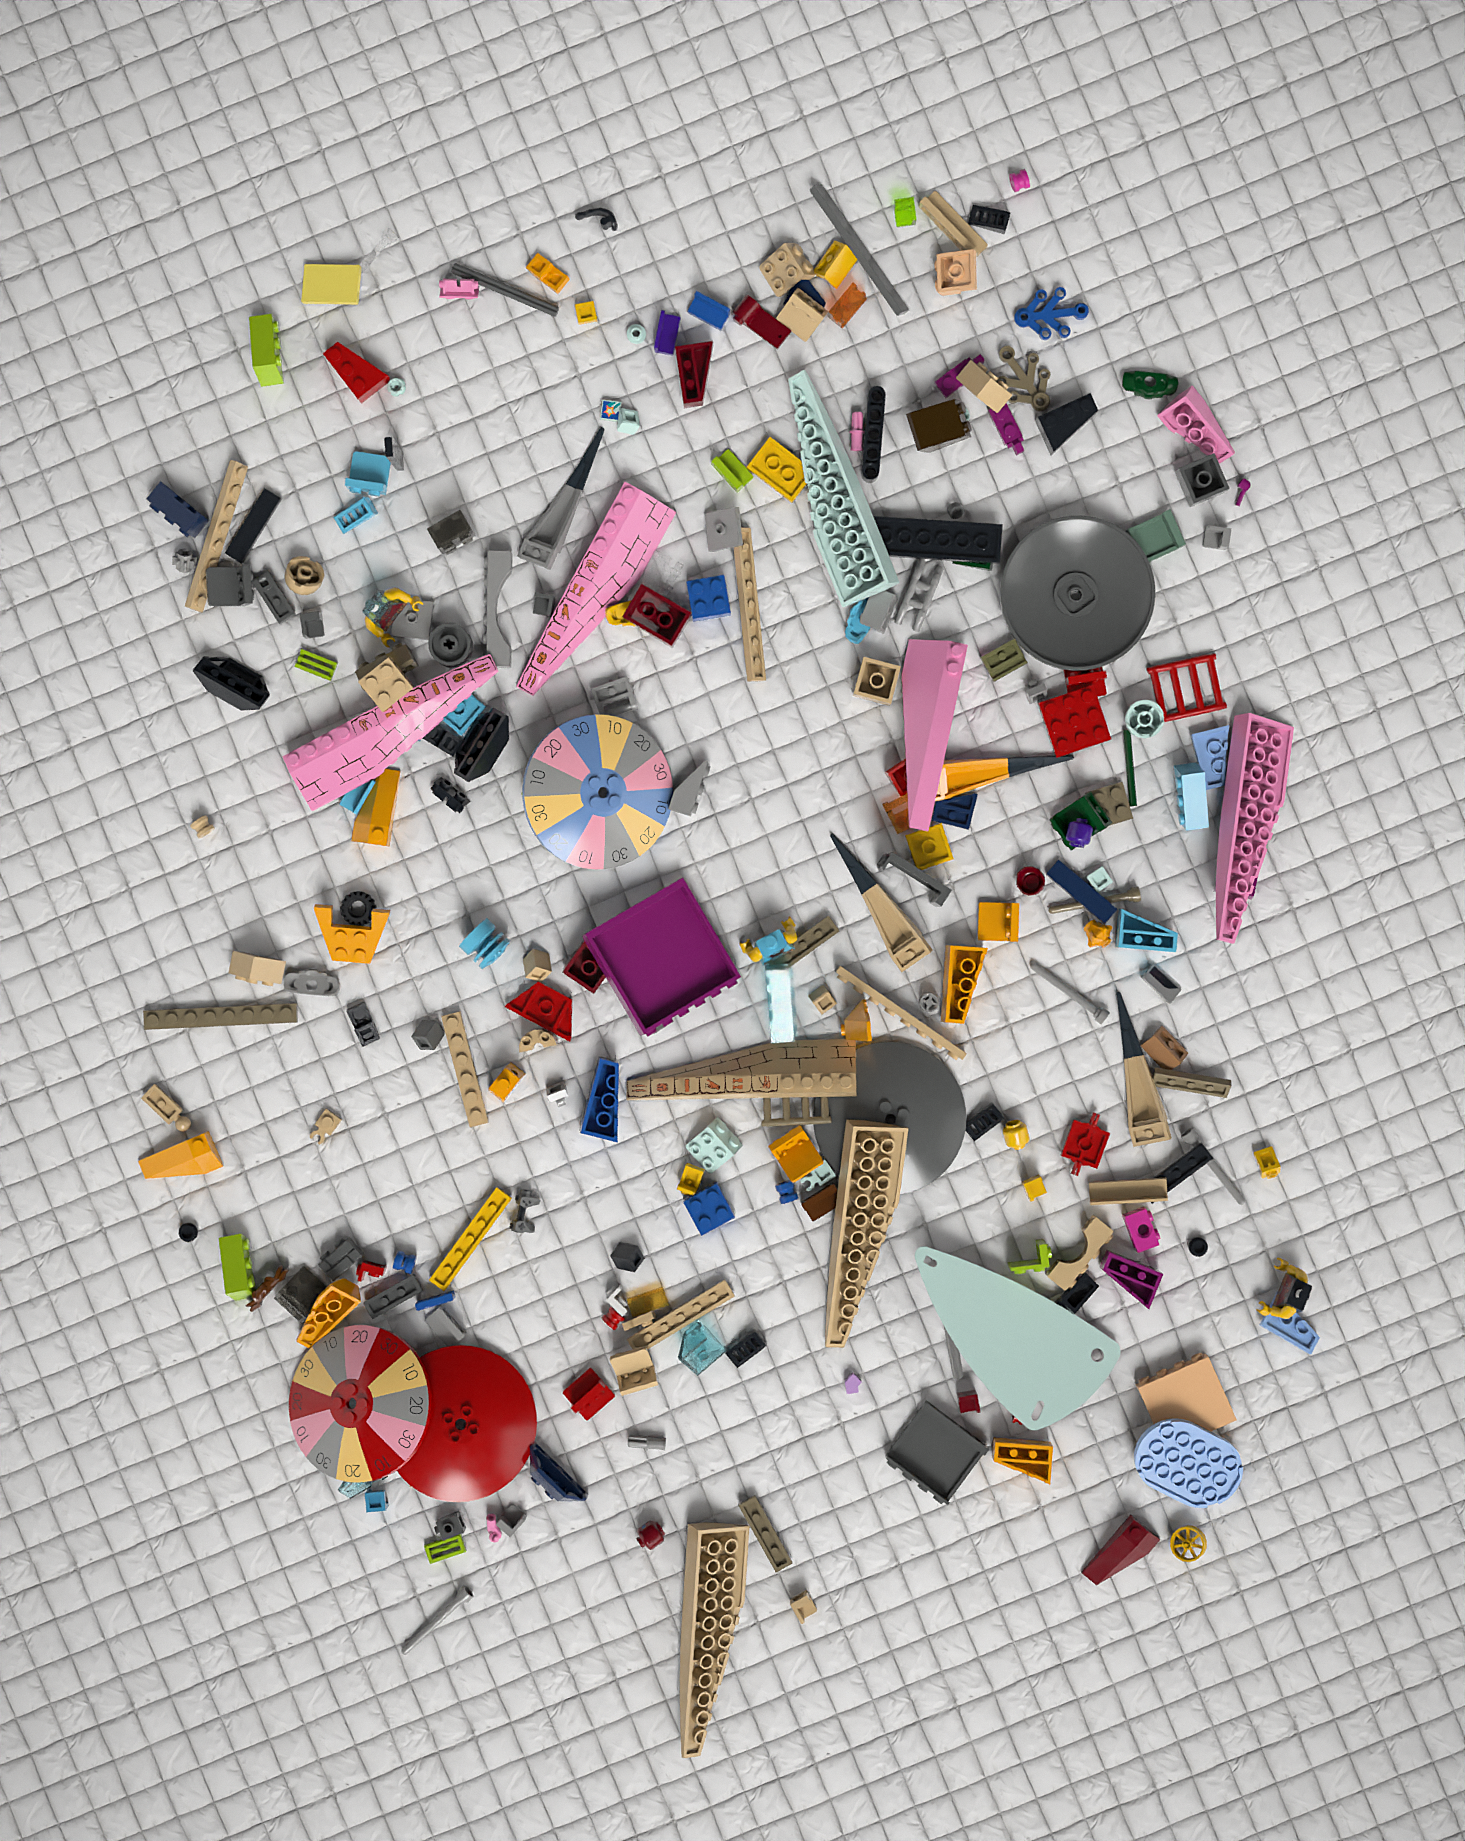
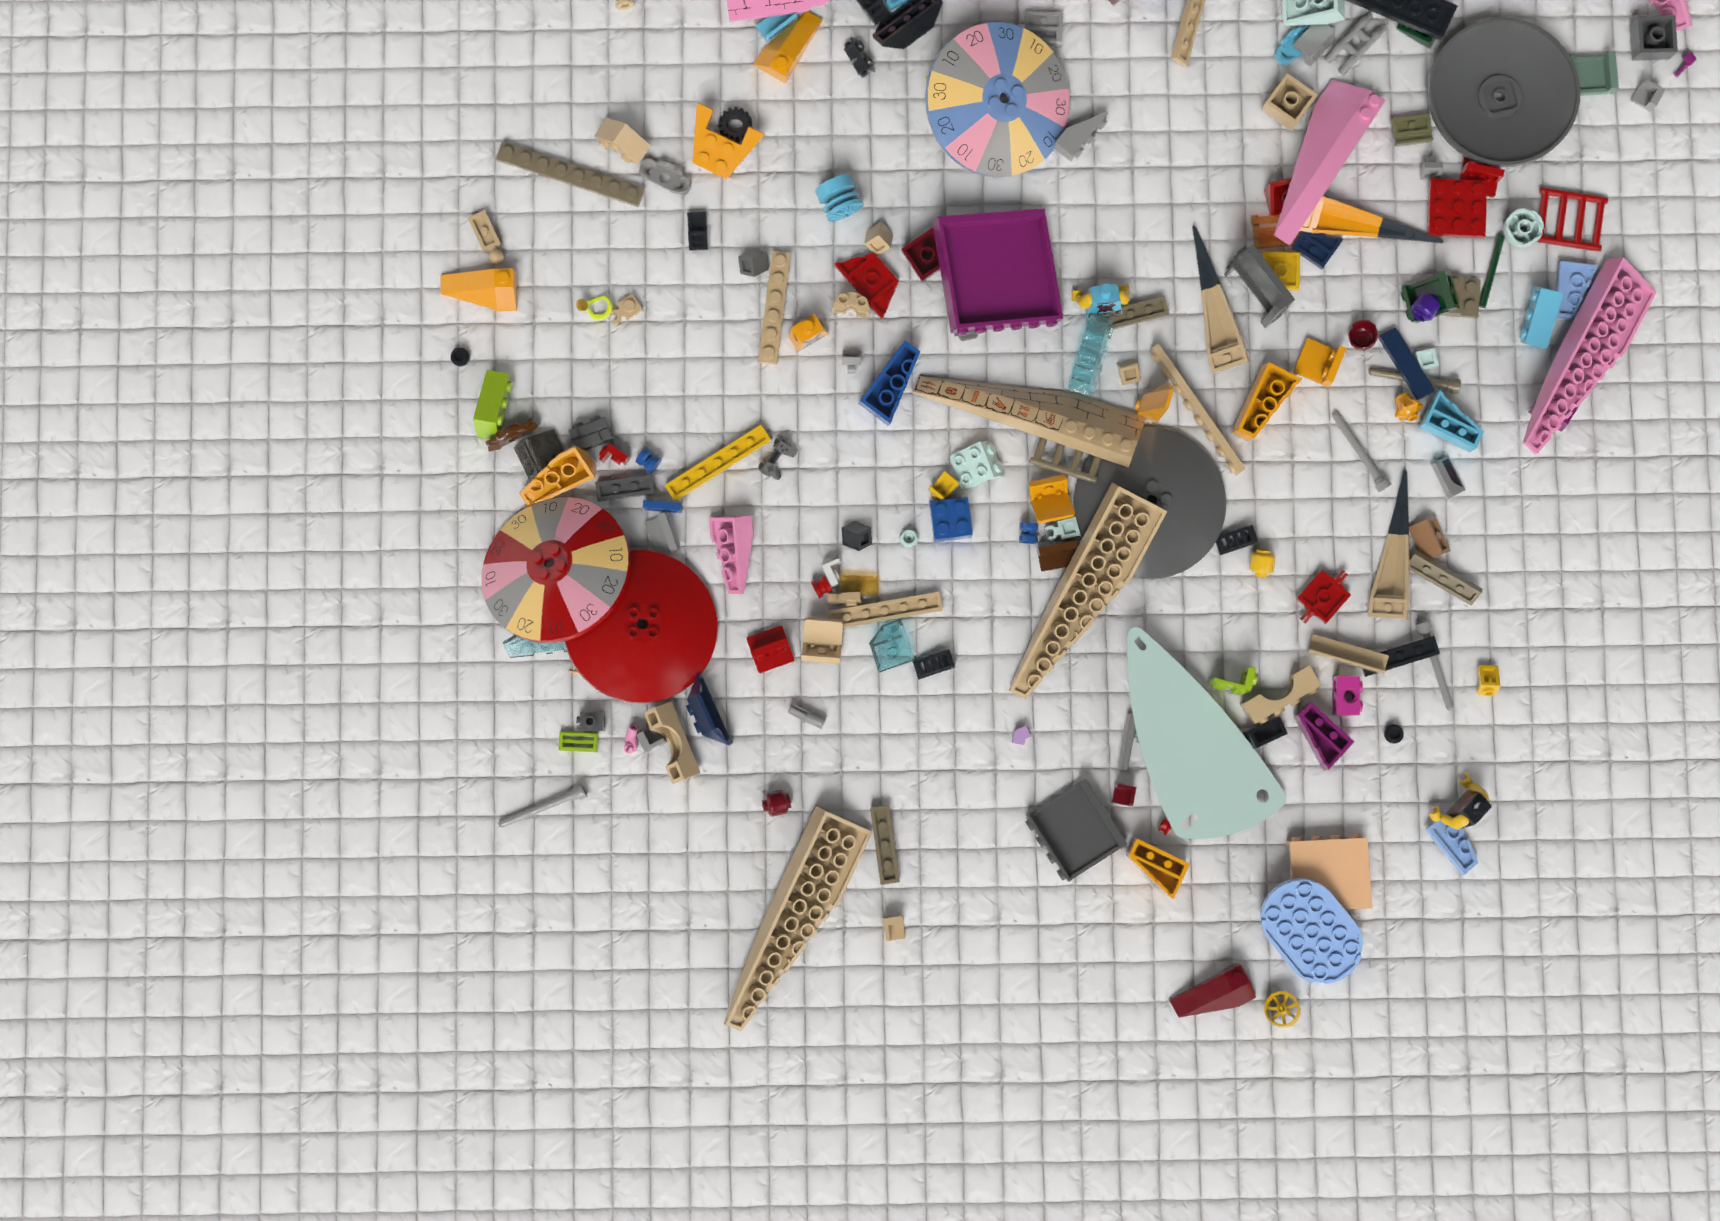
camera: 30 degrees right, 5 degrees down
(283, 1139) = (582, 305): none -> neon yellow piece
(375, 1500) = (532, 669): dark azure panel -> none
(515, 1307) = (733, 541): none -> bright pink wedge
(548, 1532) = (666, 722): none -> tan arch
(677, 1244) = (908, 533): none -> light aqua plate
(931, 1002) = (1229, 407): light grey wheel -> none
(1034, 1187) = (1260, 618): yellow panel -> none

